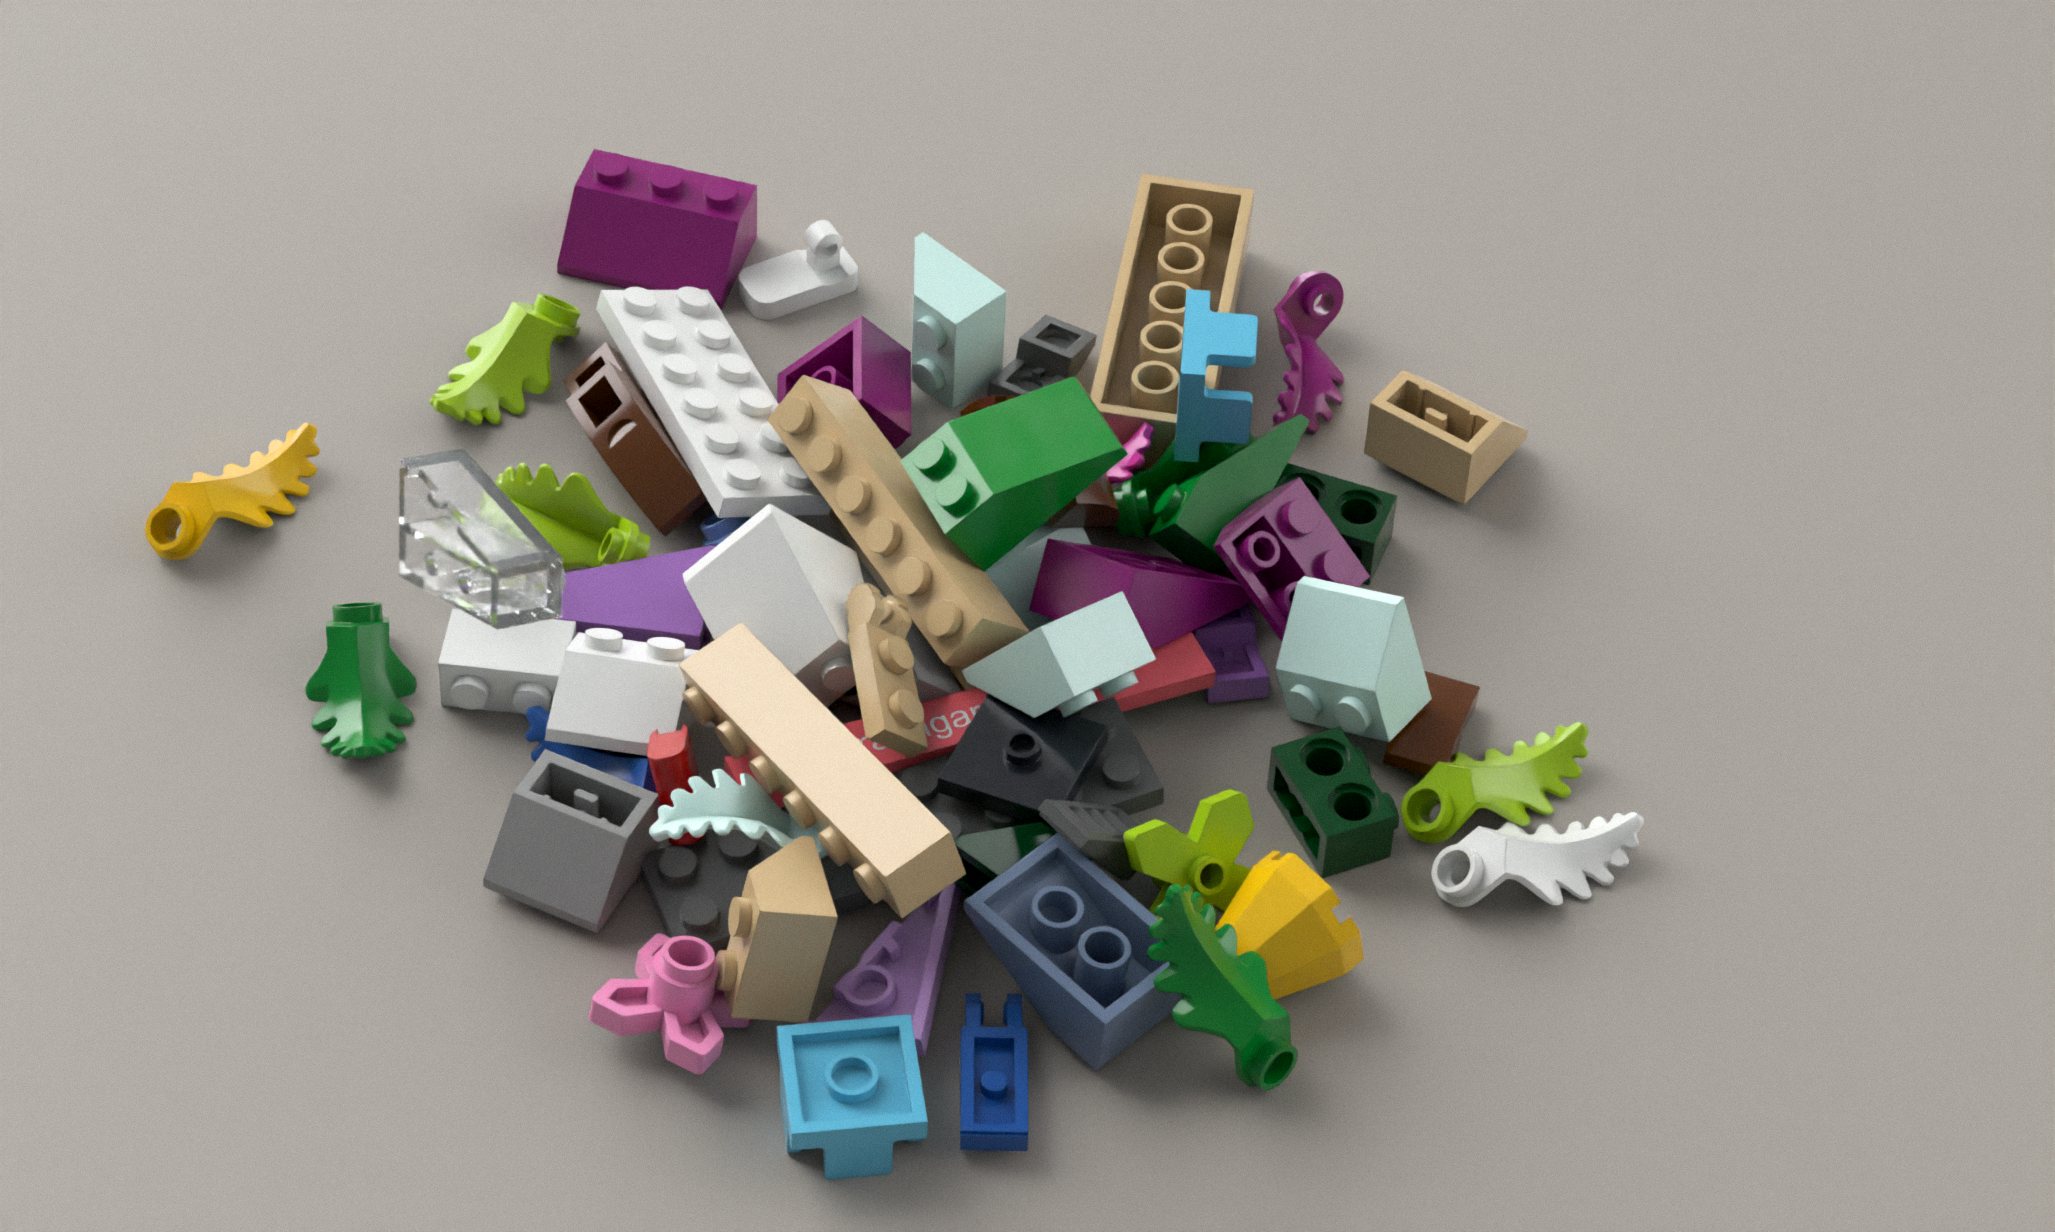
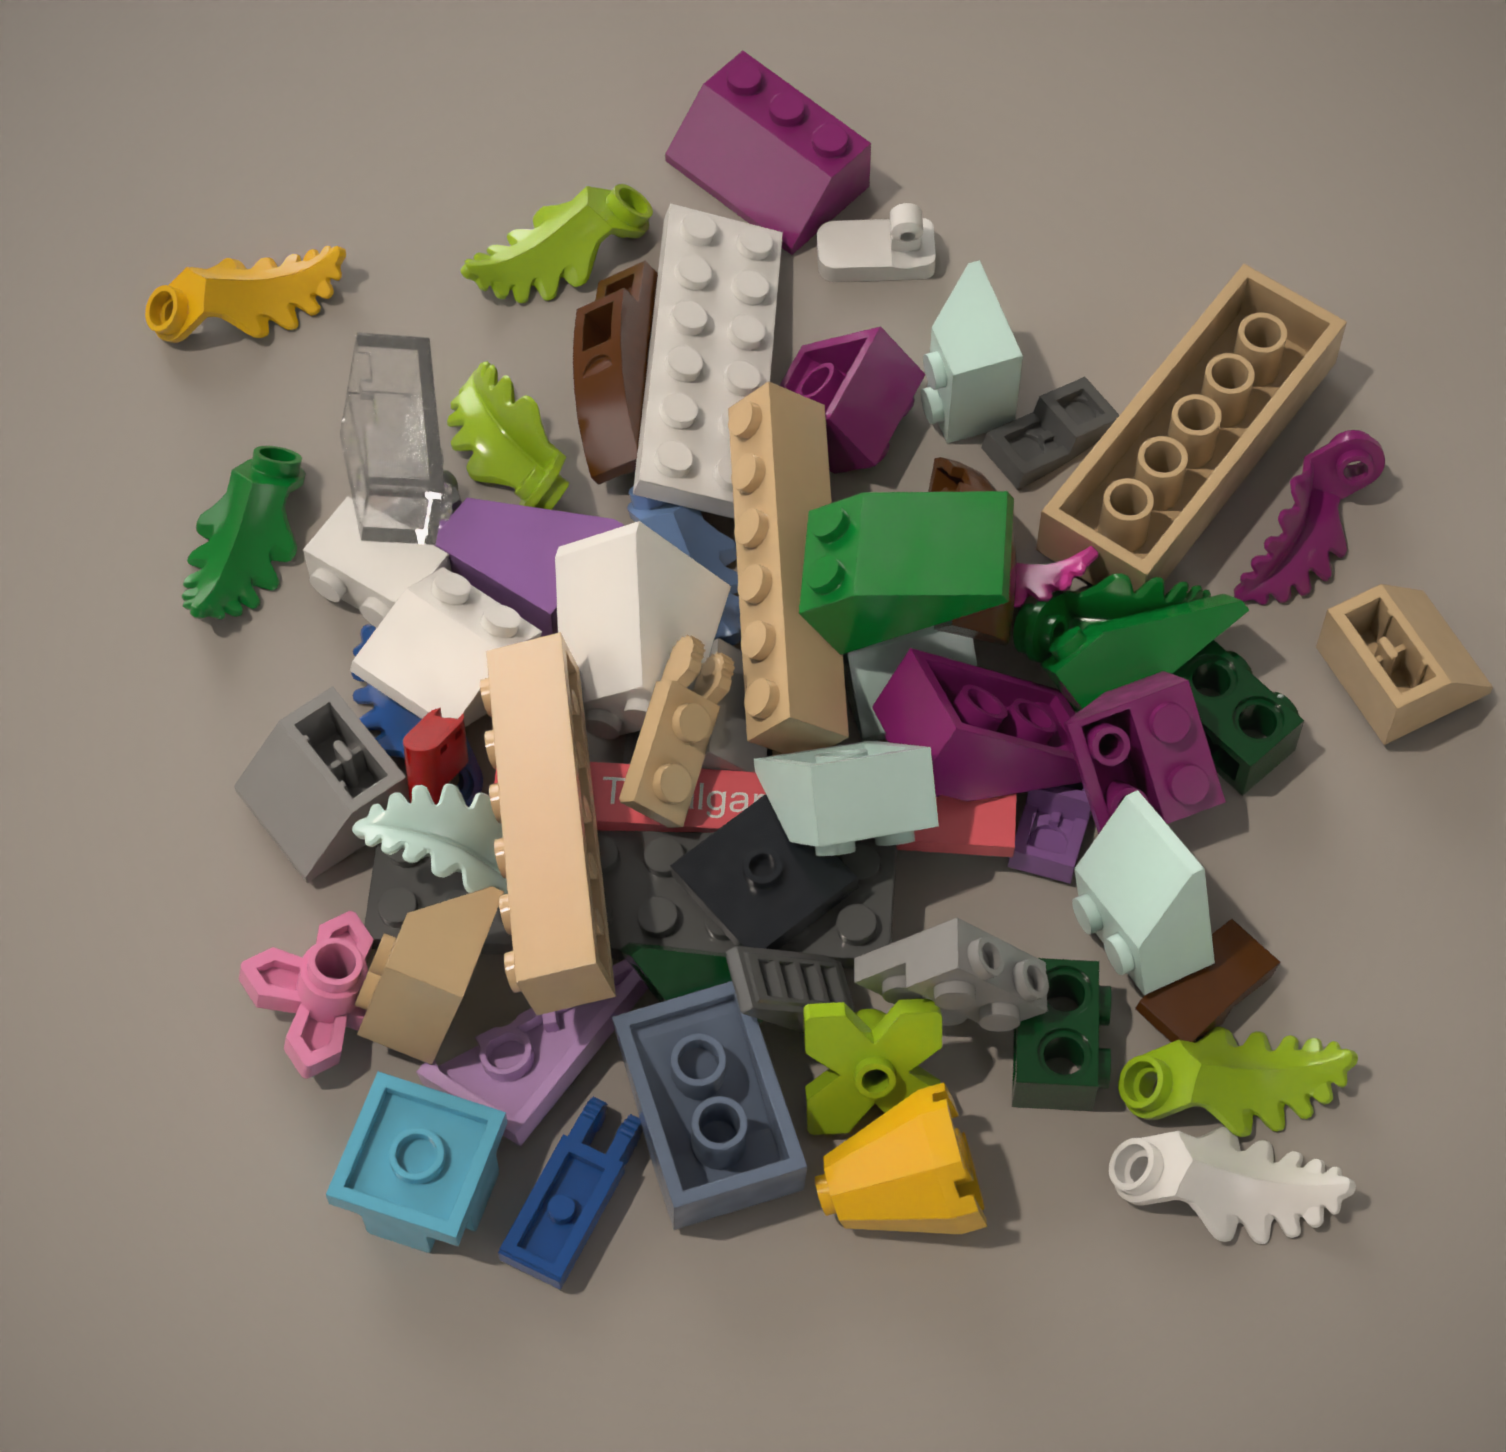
camera: 30 degrees right, 15 degrees up
(1217, 341) = (1151, 538): medium azure panel -> none
(1219, 989) = (809, 1213): green plant -> none
(1241, 753) = (962, 973): none -> light grey plate

